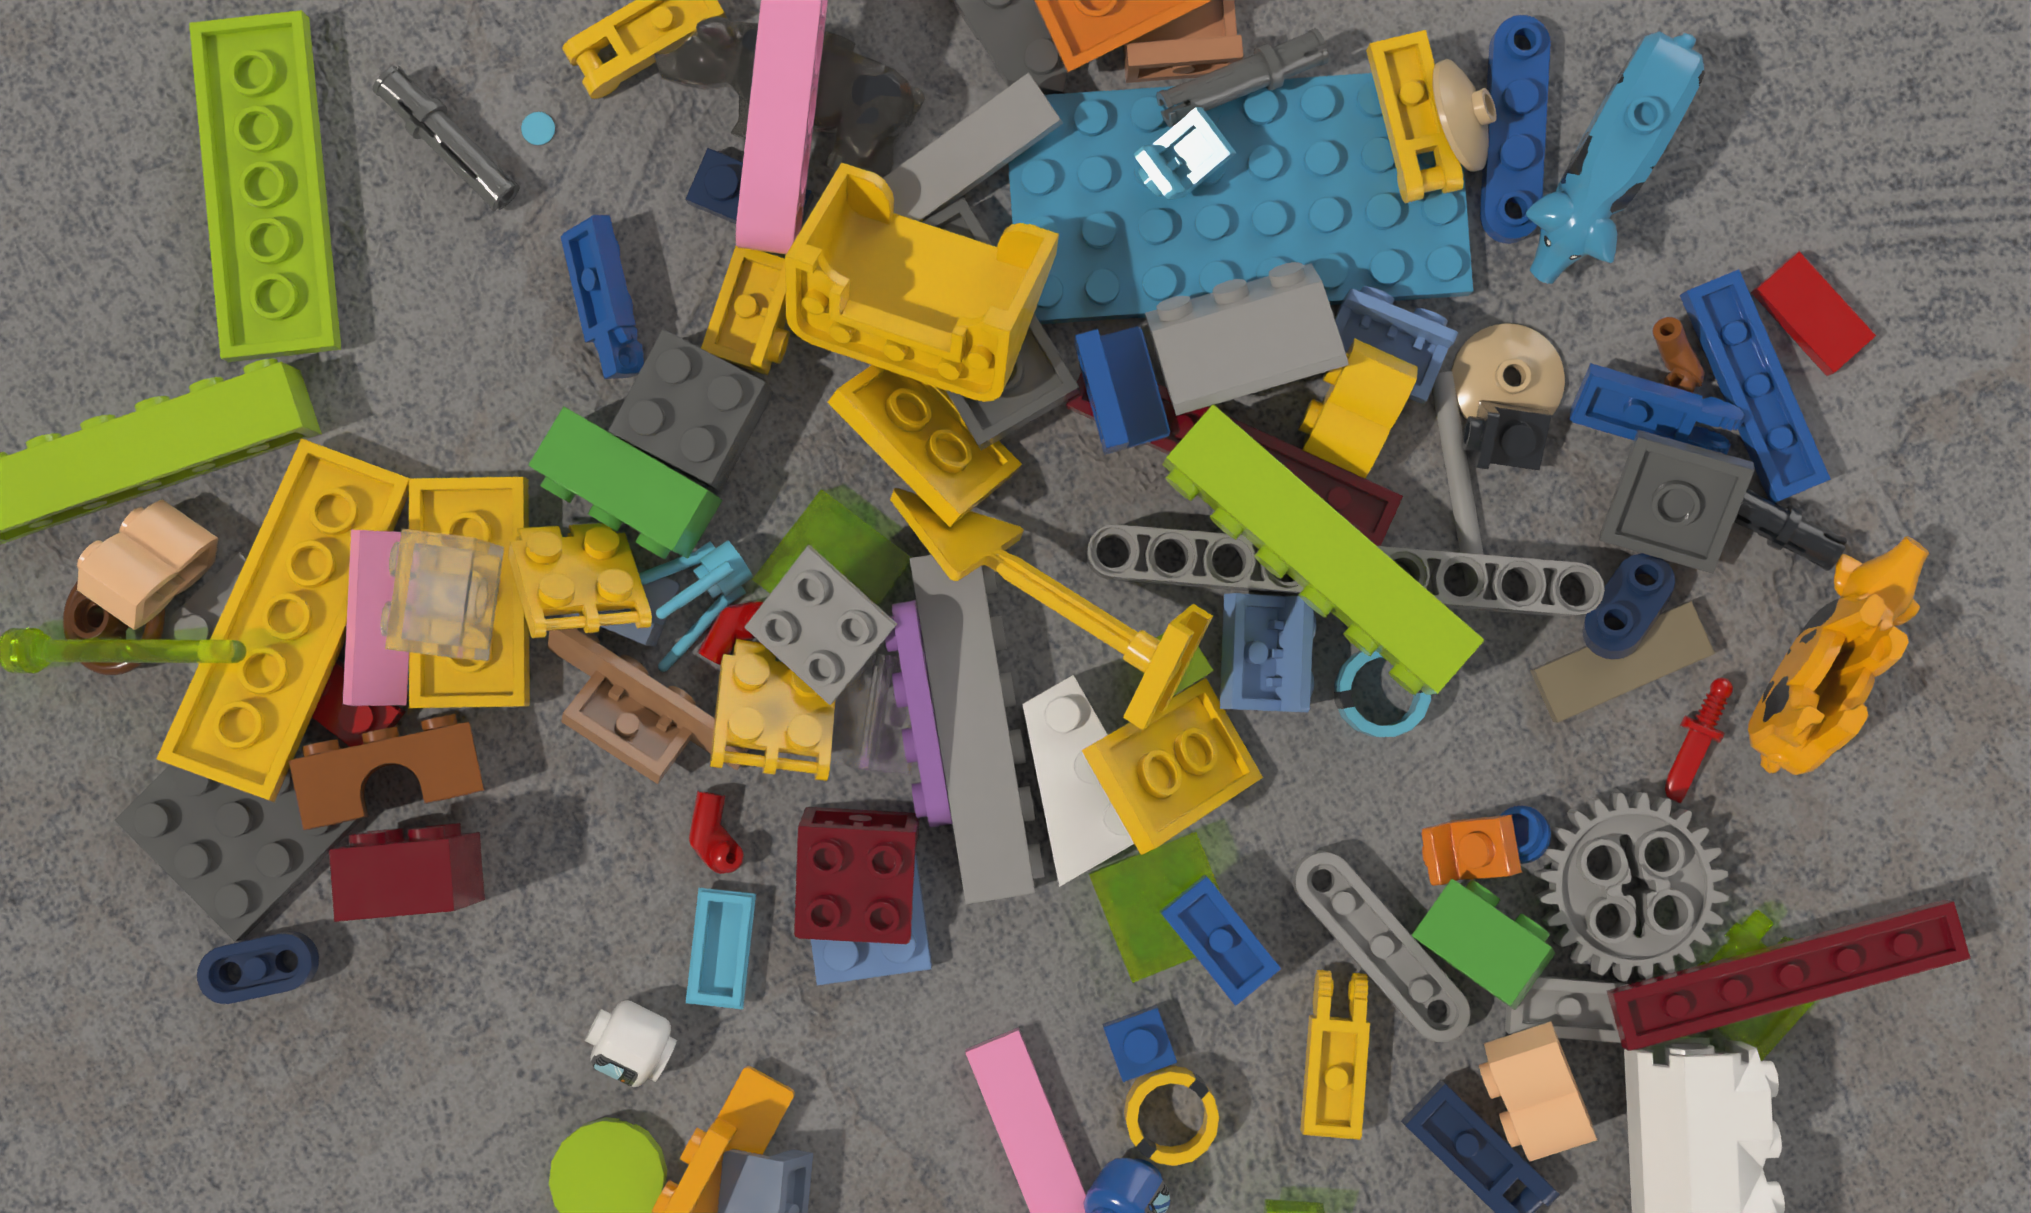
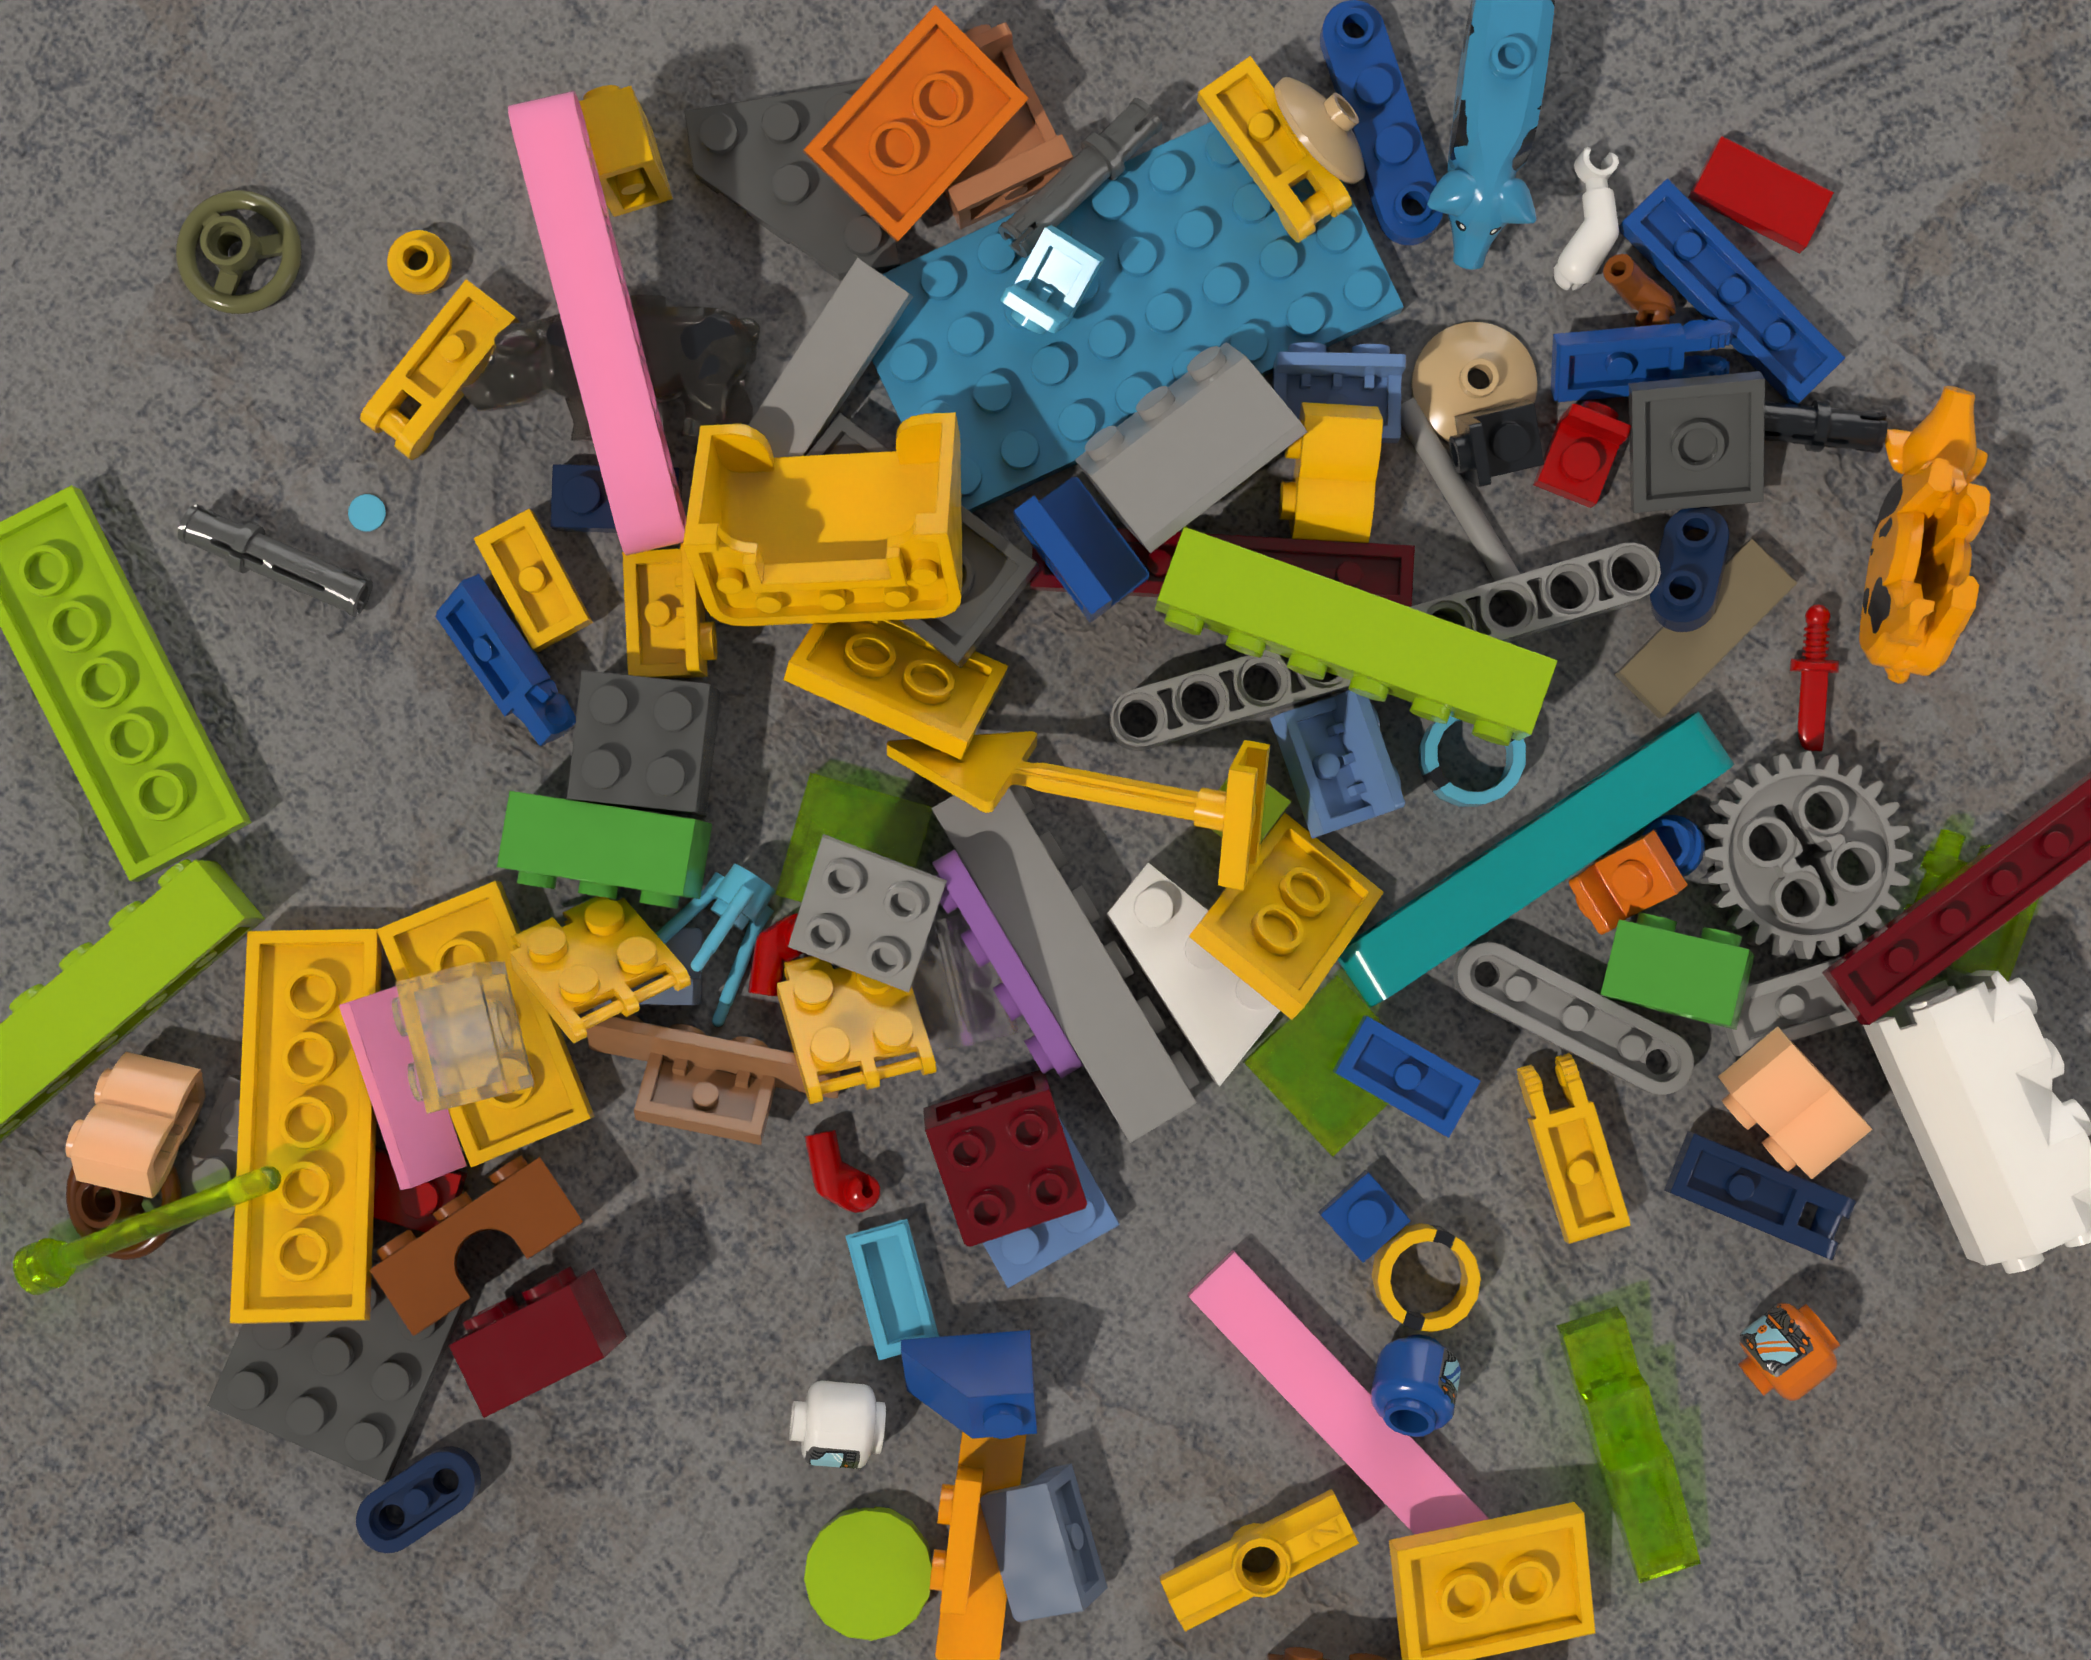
camera: 25 degrees left, 0 degrees up
(653, 238) = (533, 580): none -> yellow plate
(759, 1053) = (975, 1381): none -> blue slope
(1401, 799) = (1534, 859): none -> teal beam
(1576, 472) = (1582, 452): none -> red bracket
(1663, 291) = (1599, 229): none -> white arm

